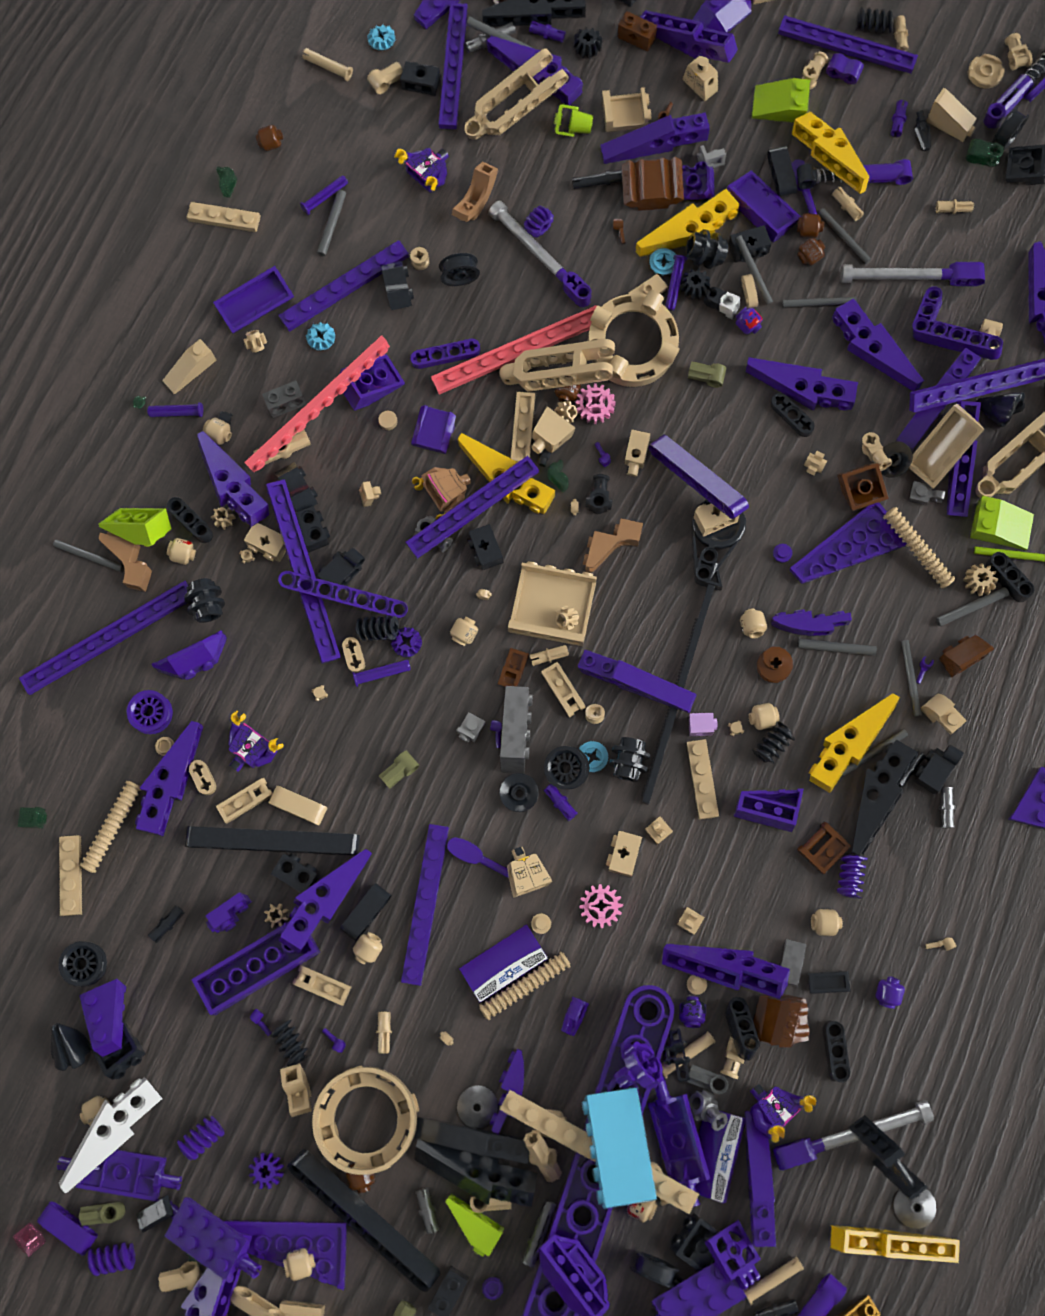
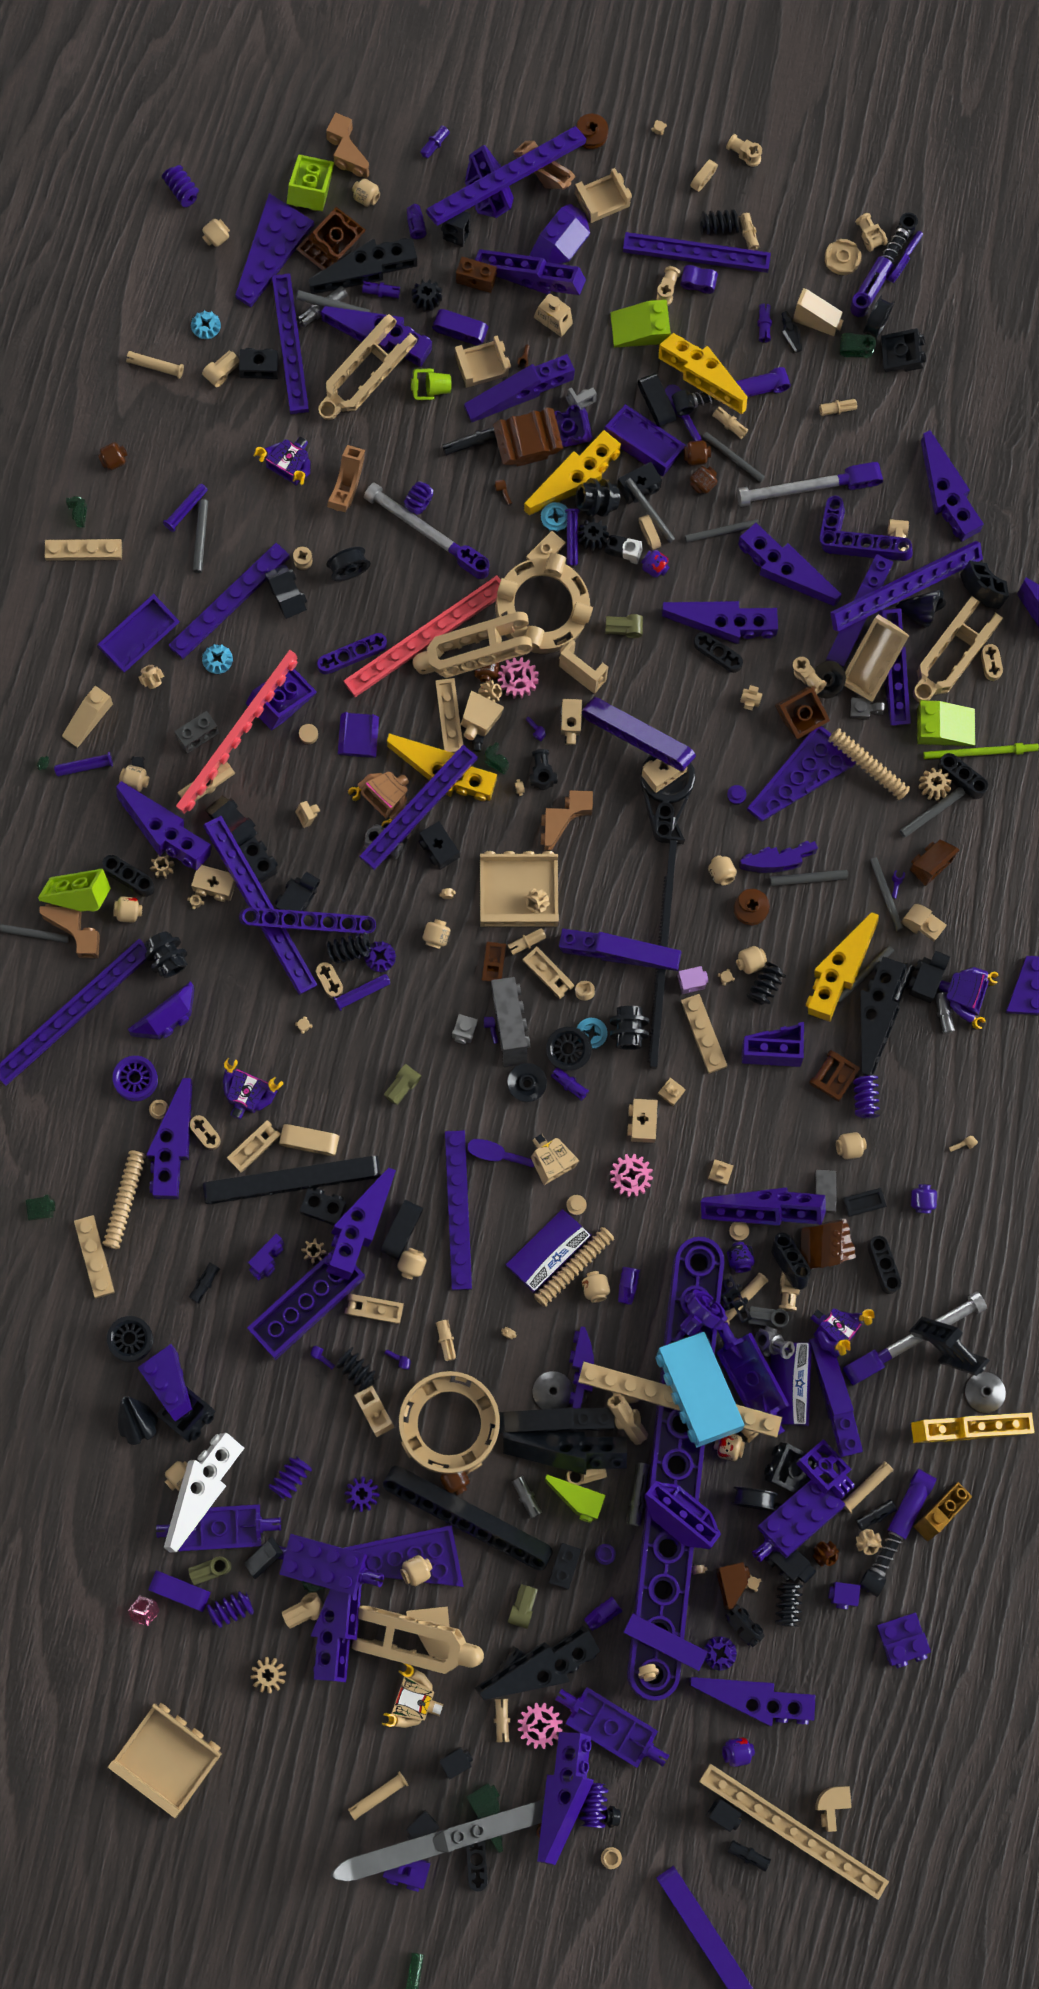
camera: 25 degrees left, 0 degrees up
(541, 1011) = (595, 1287): none -> tan head
(612, 75) = (460, 327): none -> dark purple beam
(663, 416) = (580, 670): none -> tan panel
(974, 791) = (967, 992): none -> dark purple torso

